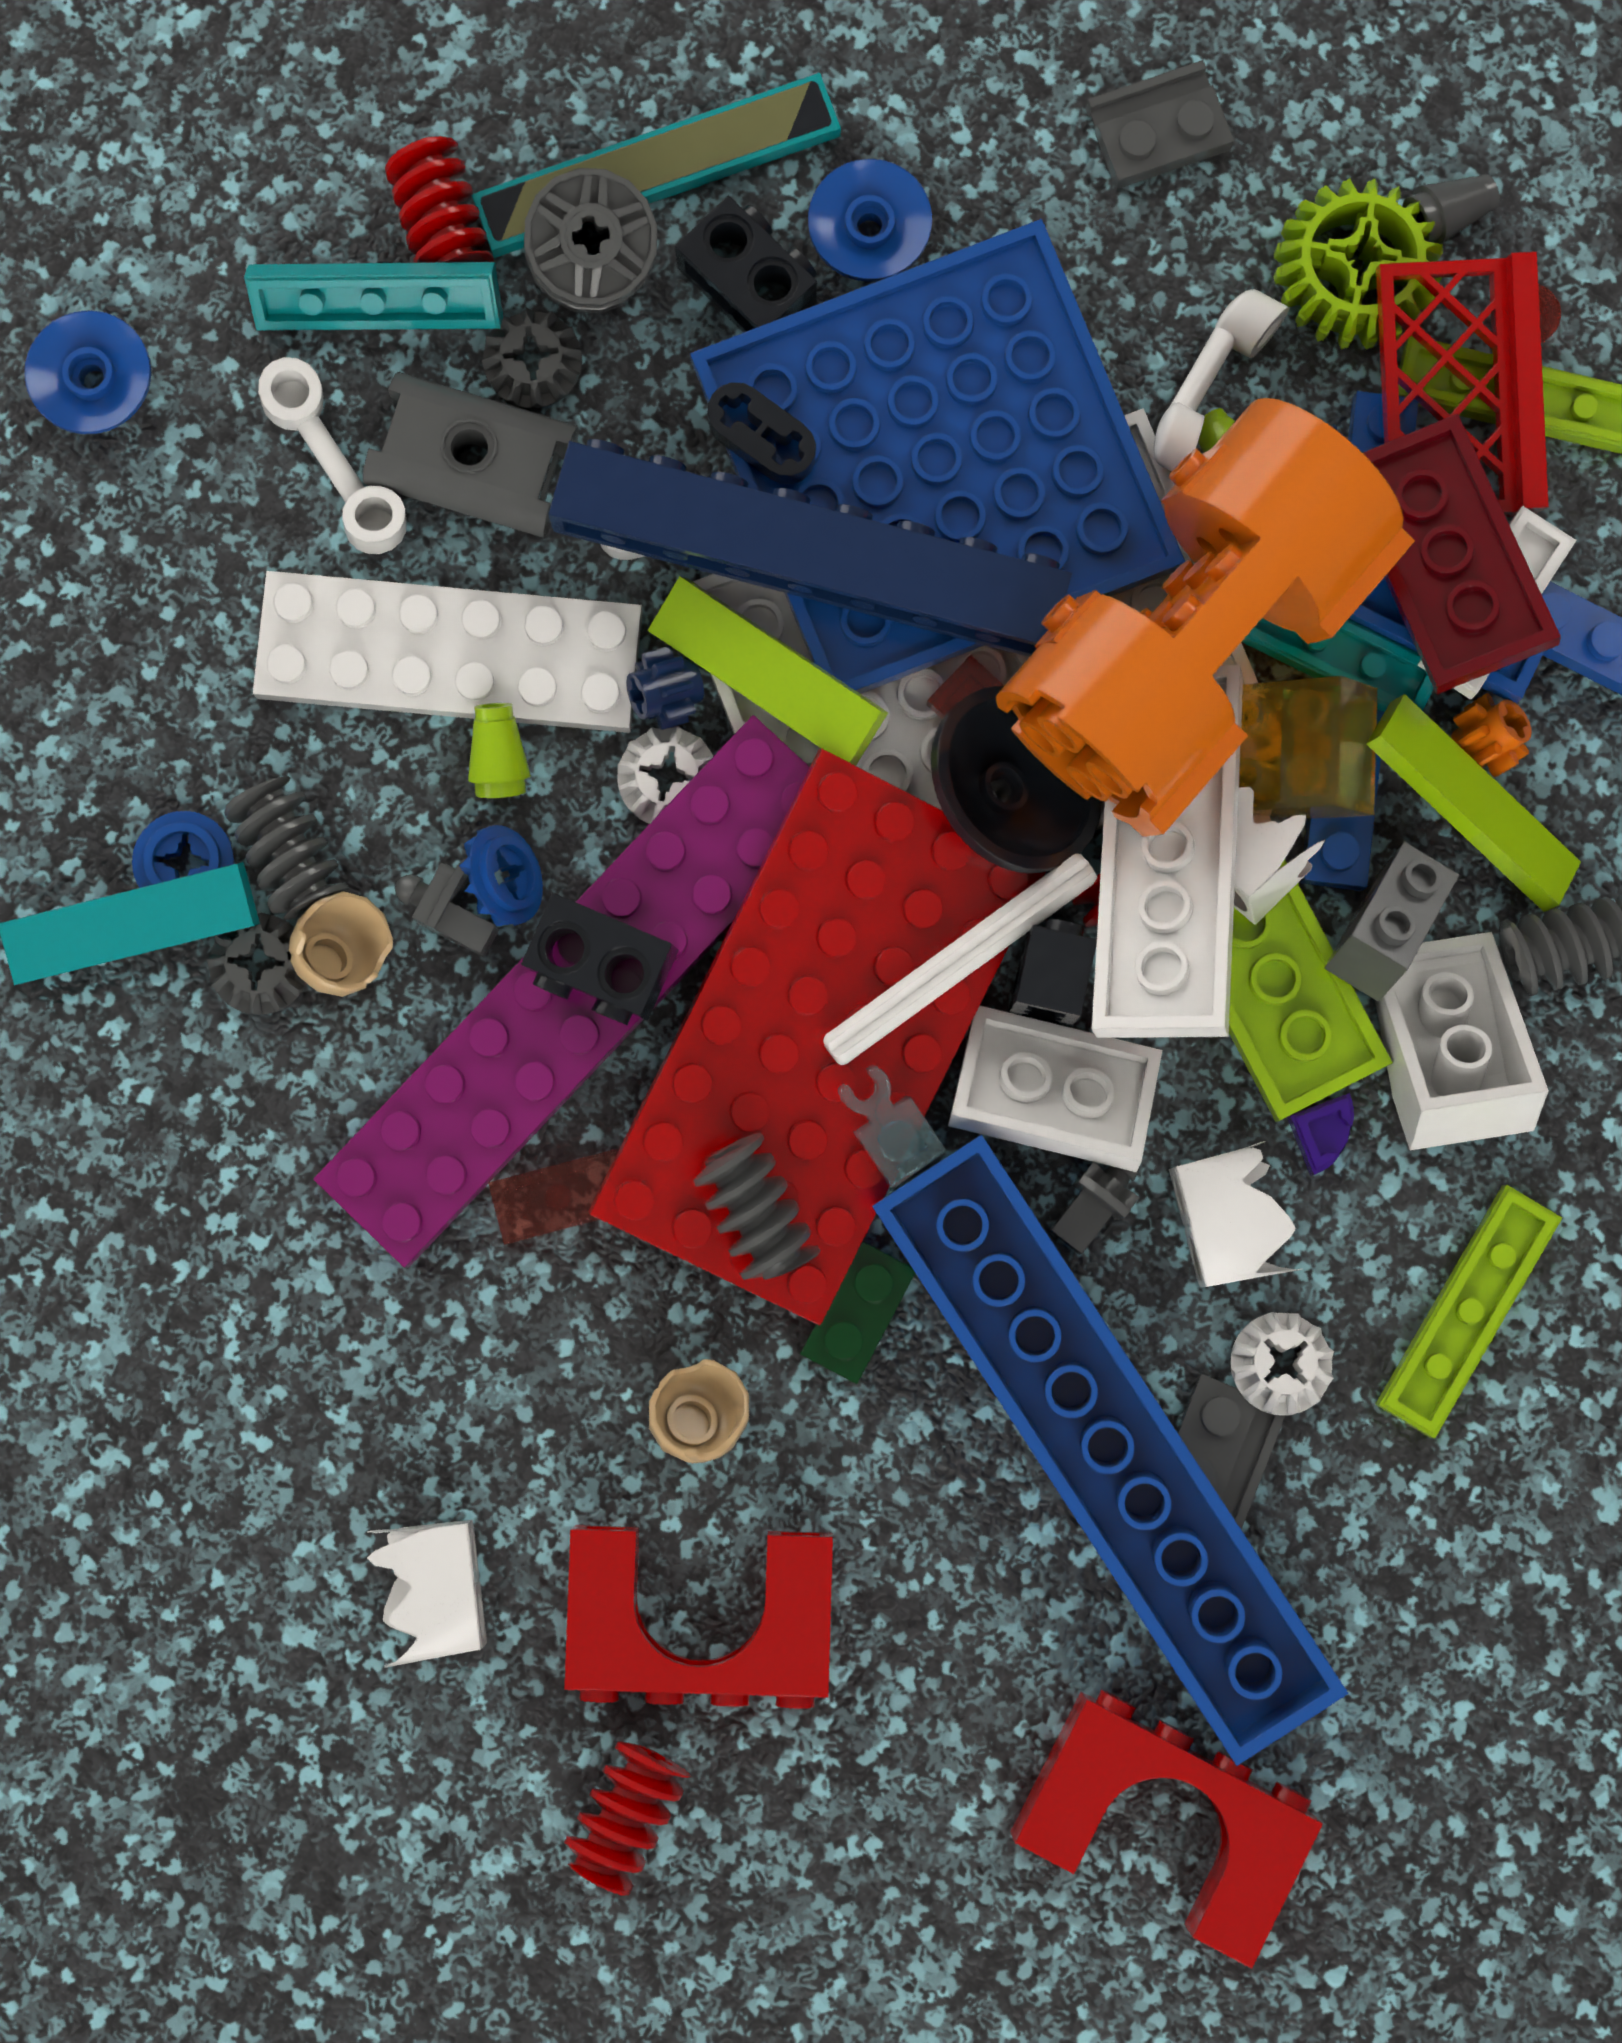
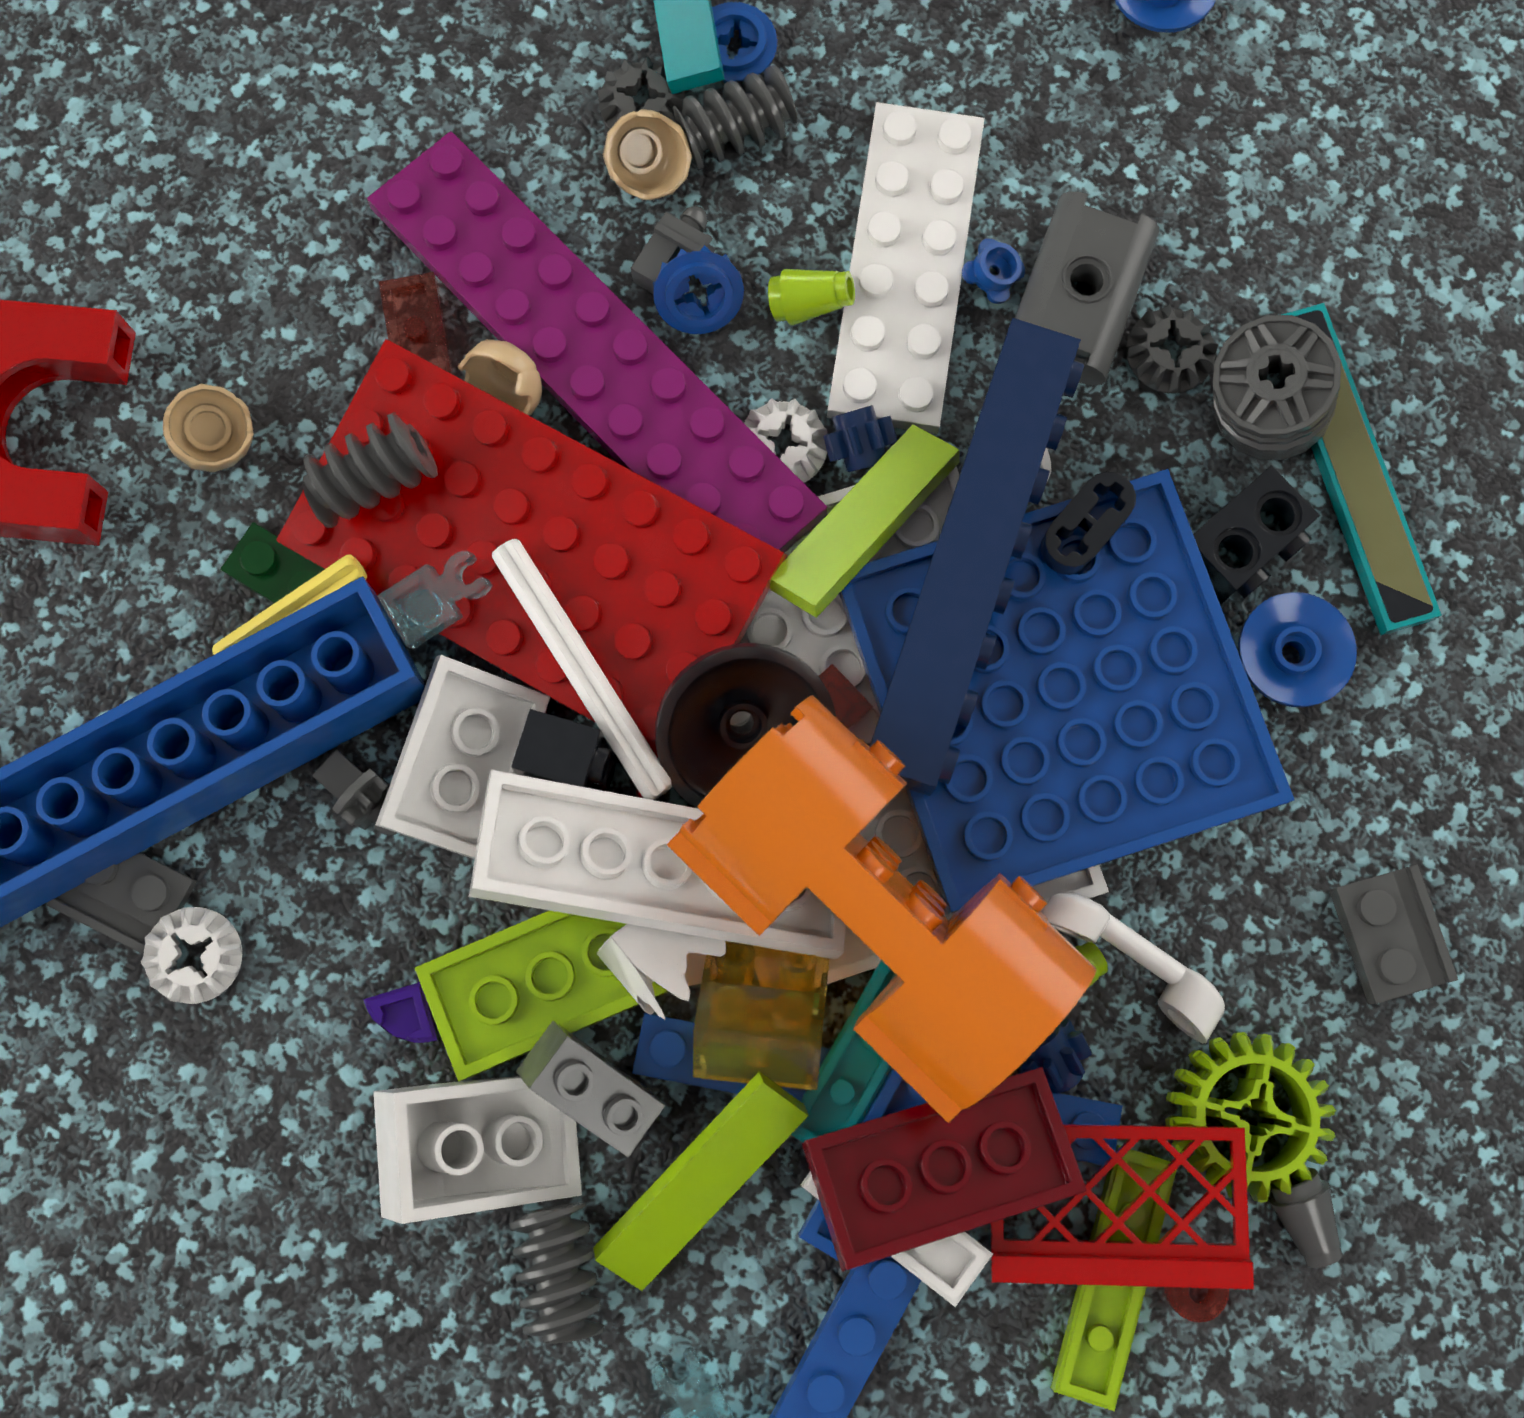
camera: 95 degrees right, 5 degrees down
(294, 400) = (1136, 150): white piece -> none
(374, 296) = (1228, 213): teal tile -> none
(431, 202) = (1309, 263): red piece -> none
(435, 1589) = (89, 213): white piece -> none
(450, 537) = (1002, 259): none -> blue plate
(605, 946) = (620, 356): black brick -> none
(618, 1085) = (504, 373): none -> tan hair
(906, 1293) = (329, 580): none -> light yellow axle
(1227, 1220) = (315, 908): white piece -> none
(1468, 1311) = (221, 1140): lime tile -> none
(1493, 733) = (770, 1208): orange gear -> none

